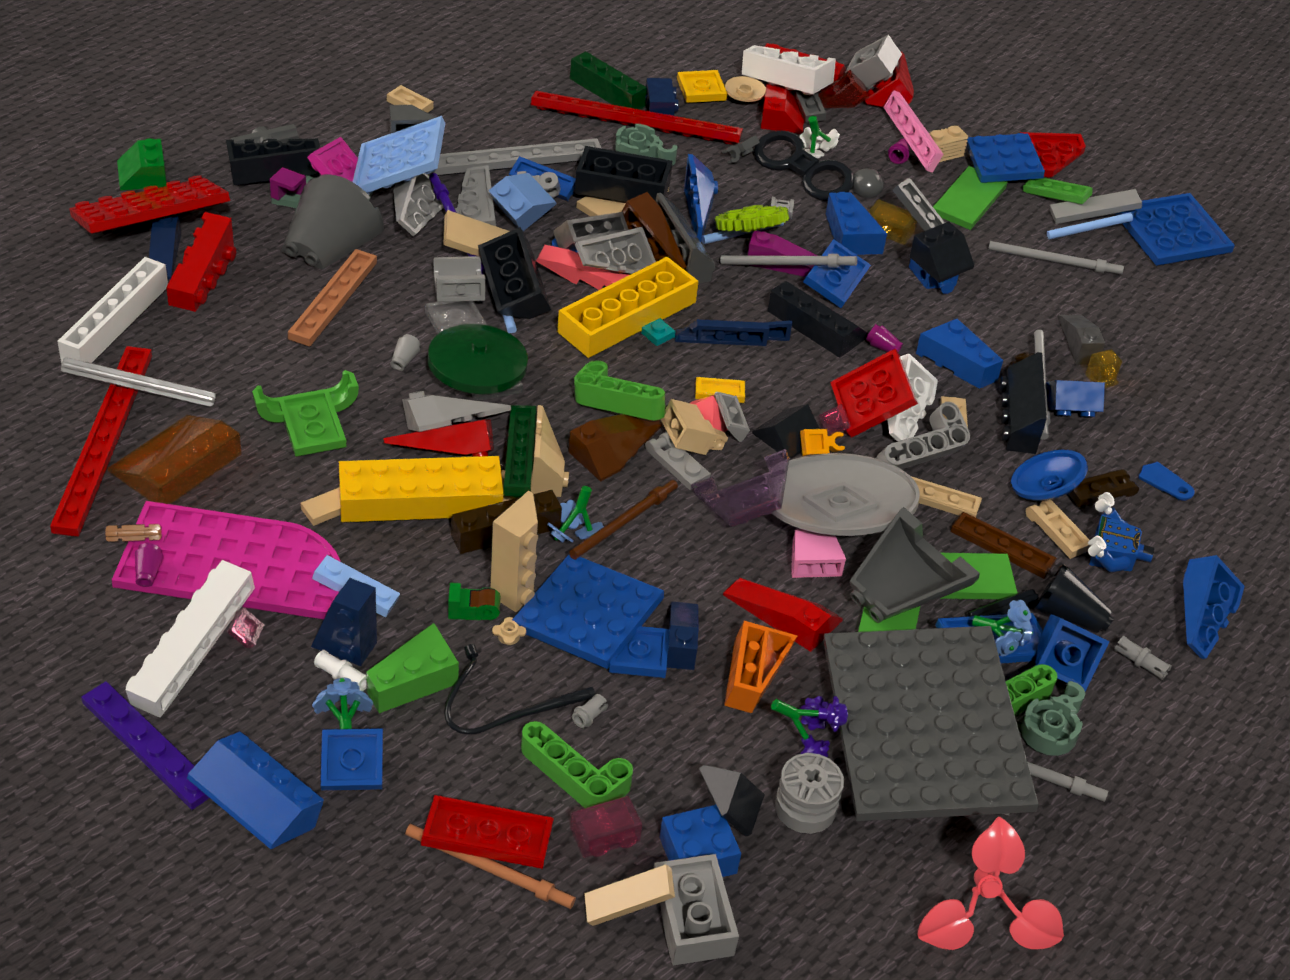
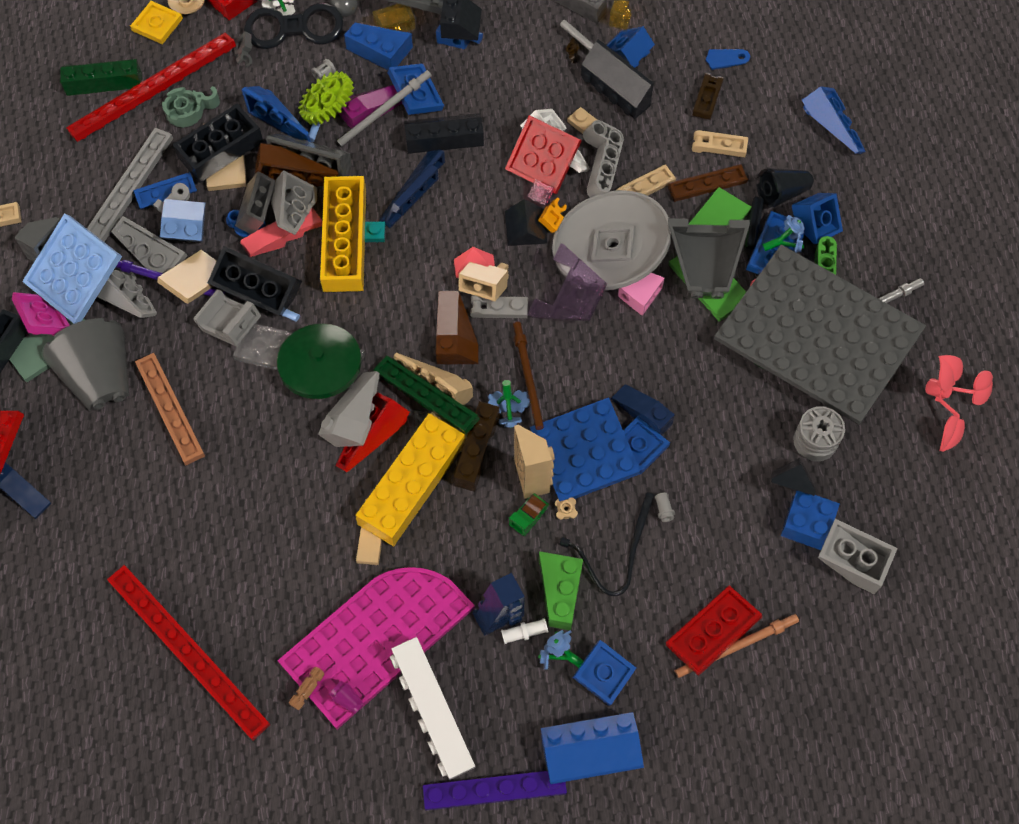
camera: 45 degrees left, 20 degrees up
(114, 312) = (66, 568): white brick -> none
(138, 382) = (155, 596): light grey axle -> none
(178, 458) = (246, 614): clear orange slope -> none
(202, 263) = (64, 474): red wedge -> none
(245, 628) = (444, 667): clear pink plate -> none
(285, 181) = (27, 359): magenta panel -> none
(311, 415) = (280, 500): bright green piece -> none
(336, 574) = (461, 575): light blue plate -> none
(405, 350) = (265, 399): light grey cone -> none
(563, 764) = (698, 546): bright green beam -> none
(606, 827) = (759, 561): clear pink brick -> none
(616, 395) = (421, 301): bright green beam -> none
(629, 895) = (824, 585): tan tile -> none
(661, 96) = (149, 57): dark blue brick -> none
(708, 386) = (457, 235): yellow tile -> none
(732, 415) = (491, 246): light grey slope -> none
(754, 663) = (704, 391): orange wedge -> none
(785, 612) = (673, 338): red wedge -> none
(814, 715) = (761, 384): dark purple plant -> none
(883, 339) = (493, 110): magenta cone -> none
(962, 352) = (544, 77): blue wedge -> none
(1049, 475) = (679, 107): blue dish -> none
(1053, 723) = (857, 259): sand green piece -> none
(1115, 541) = (755, 123): blue torso -> none
(1142, 657) = (844, 182): light grey pin -> none

